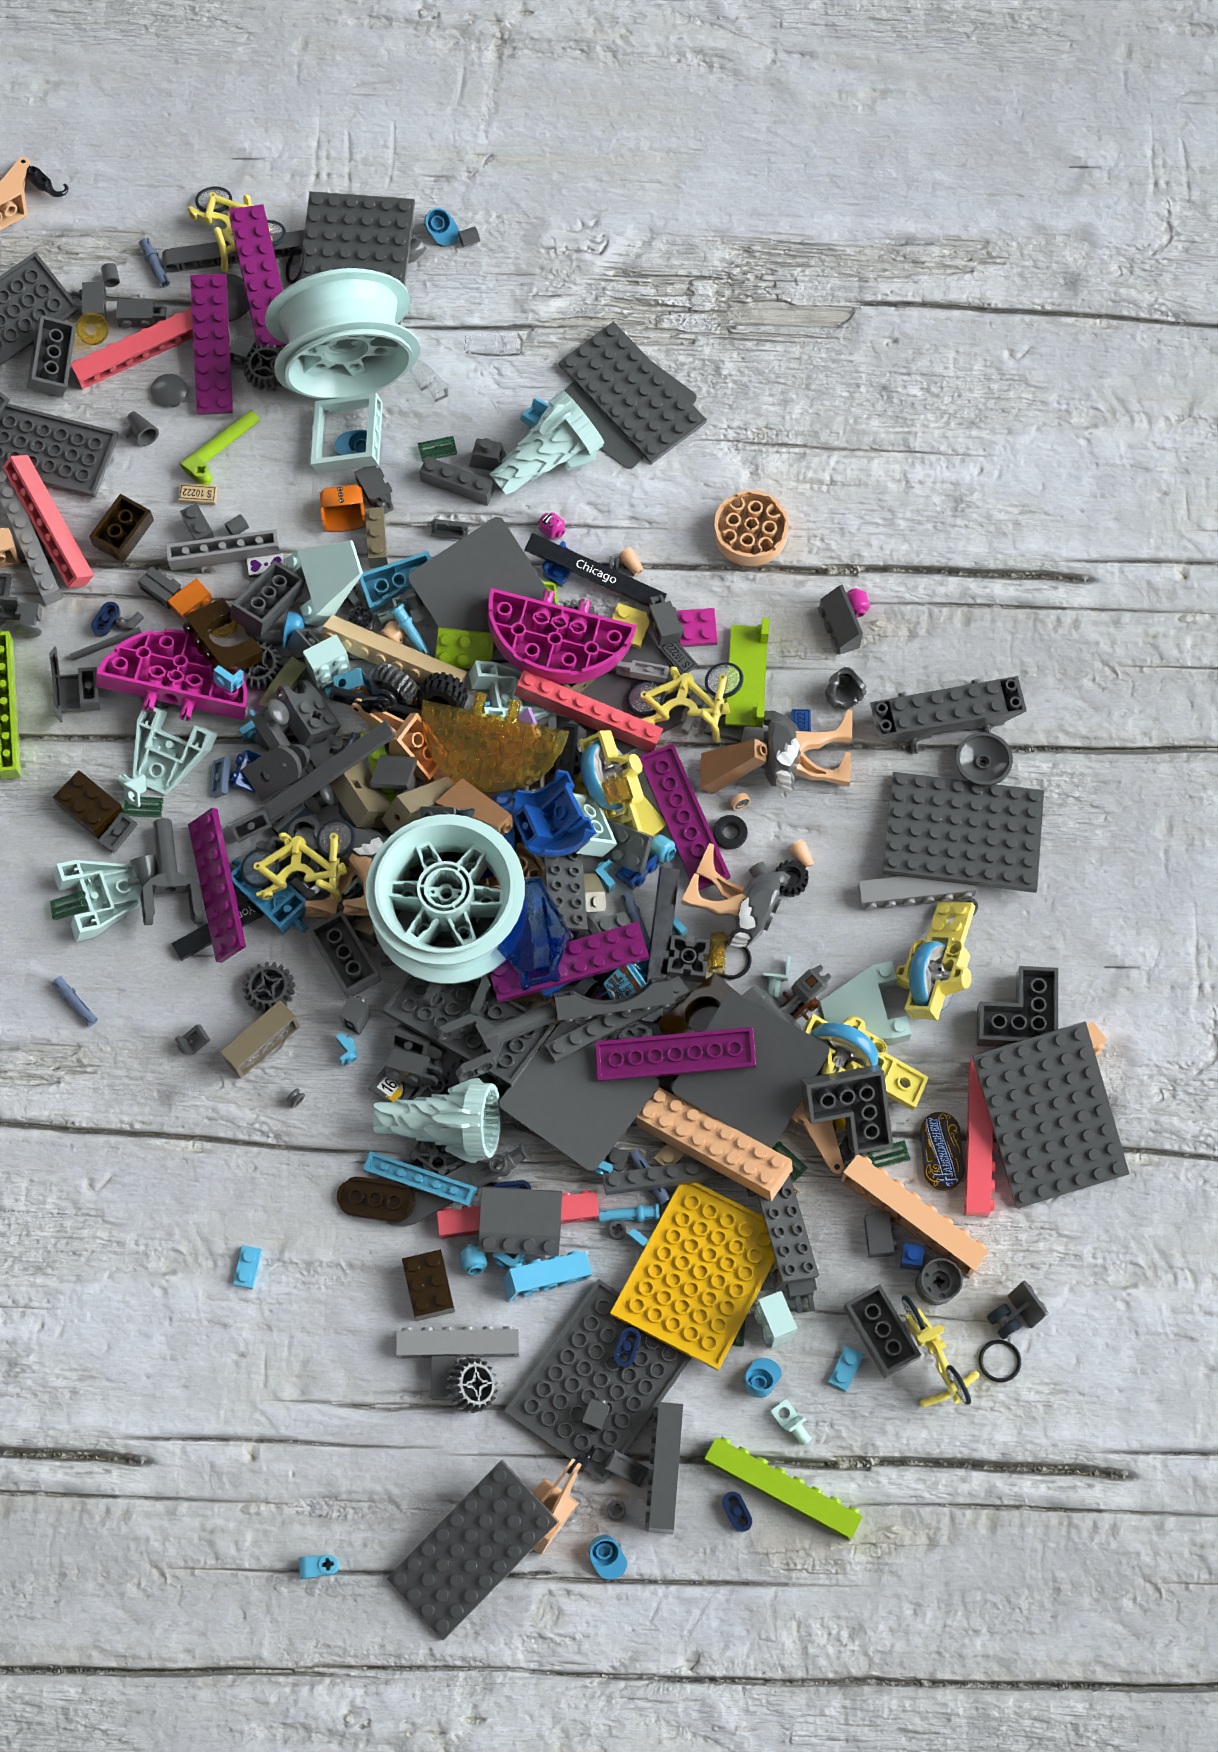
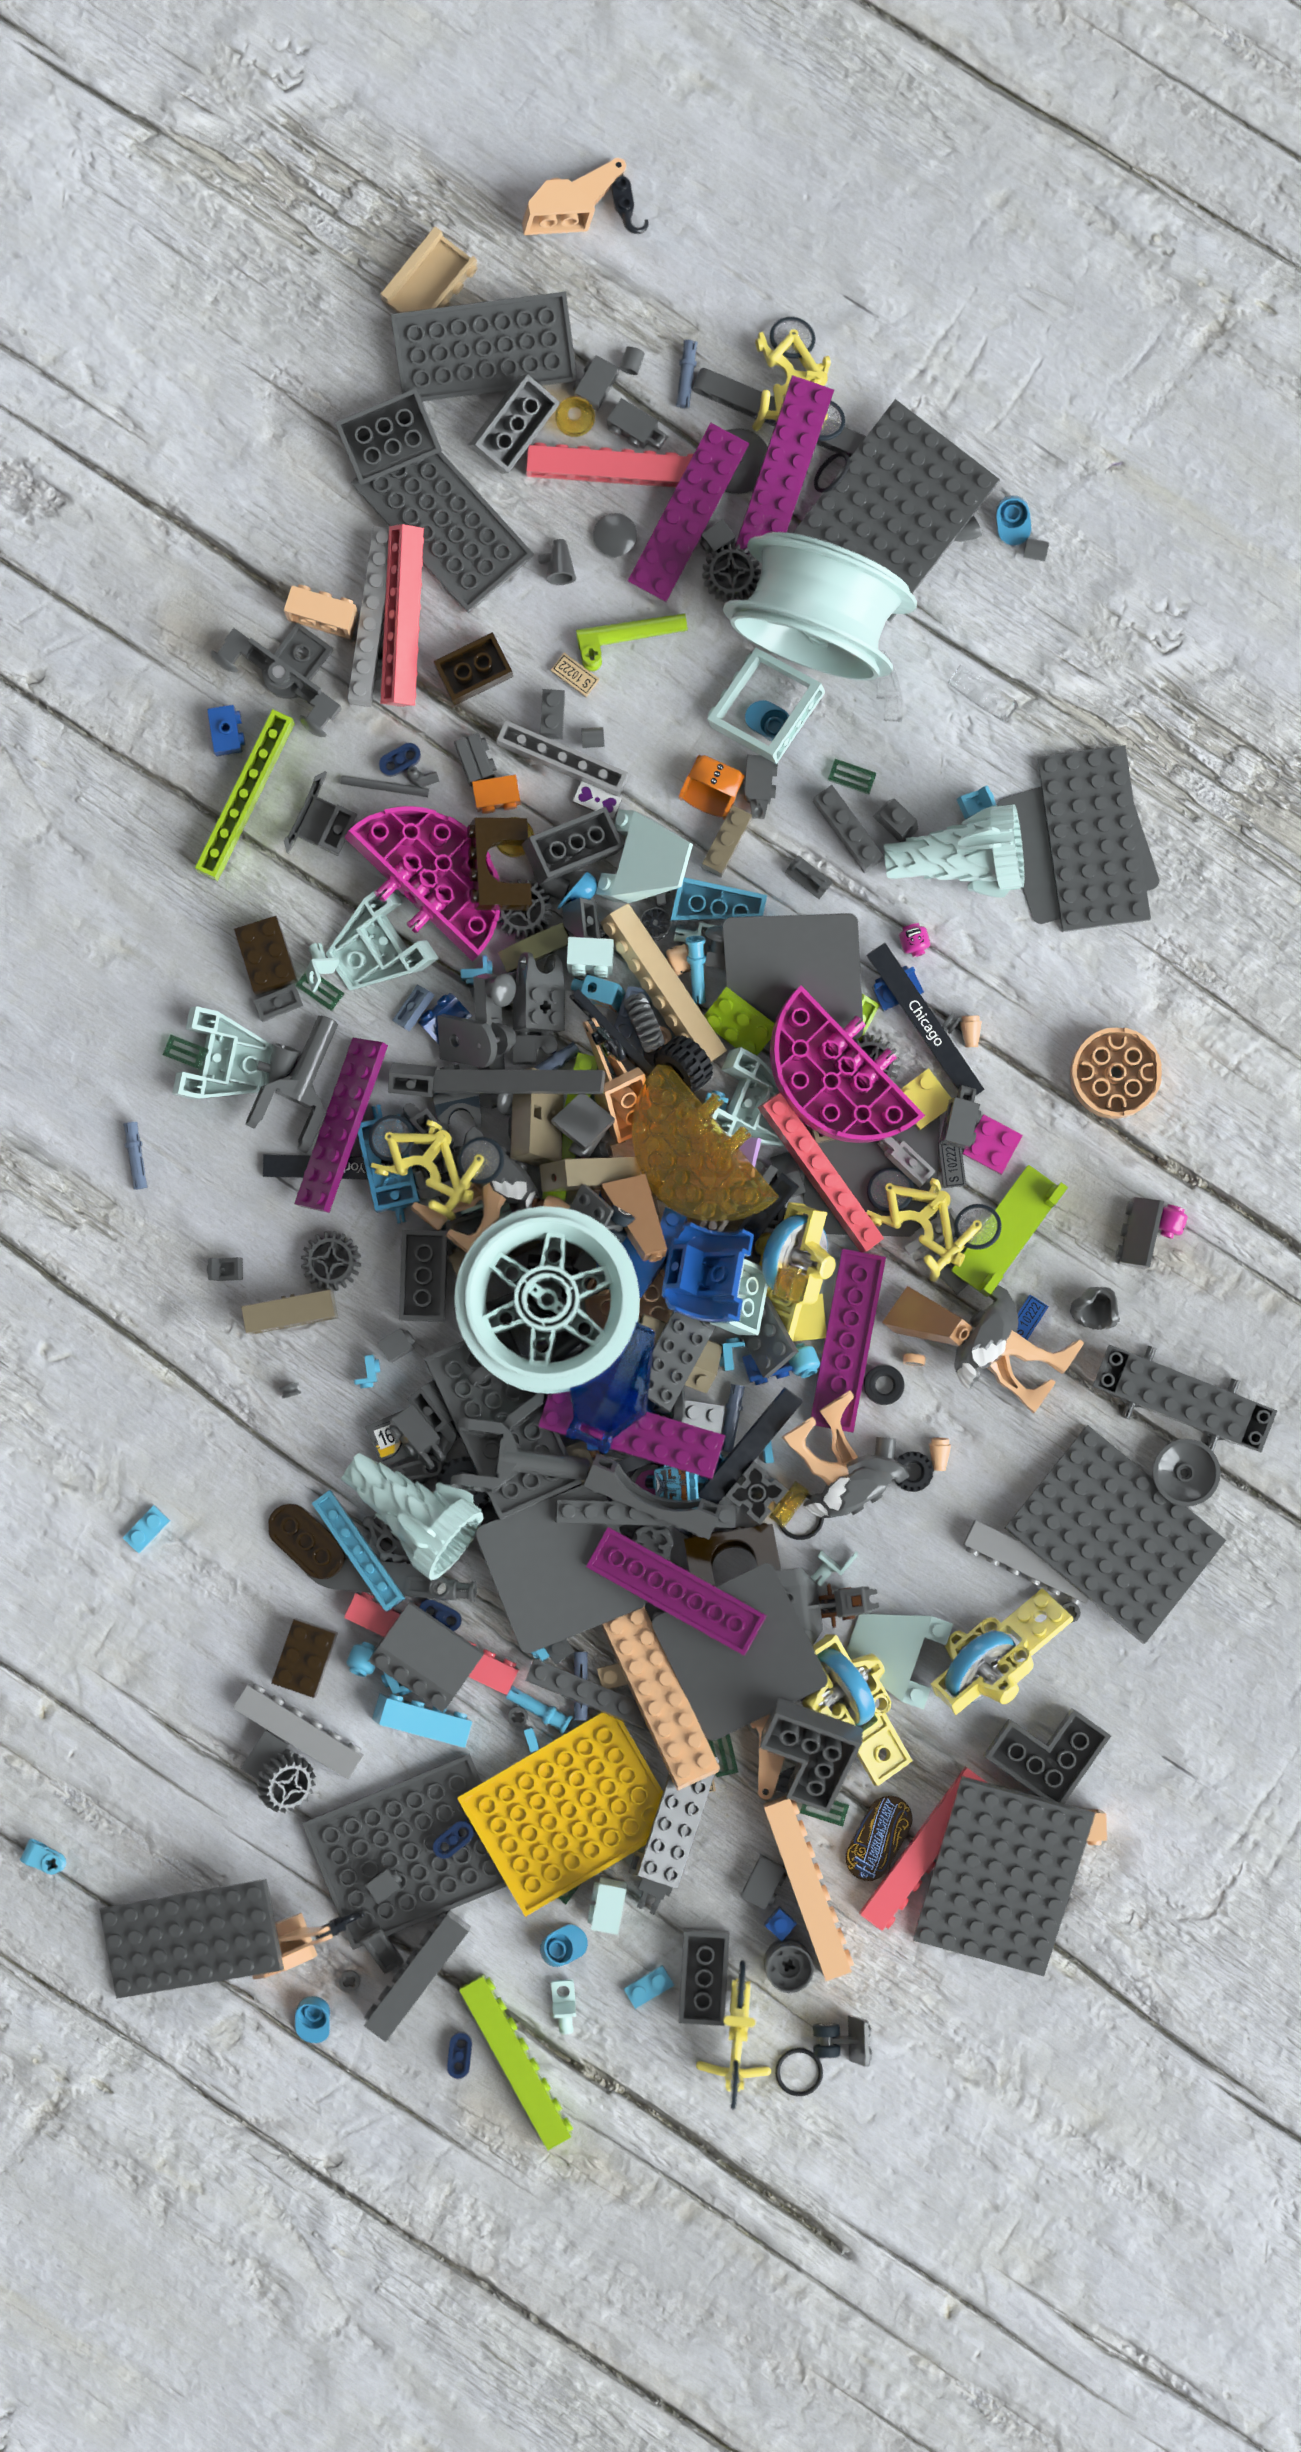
camera: 30 degrees right, 15 degrees up
(226, 680) = (474, 914): medium azure bracket -> none

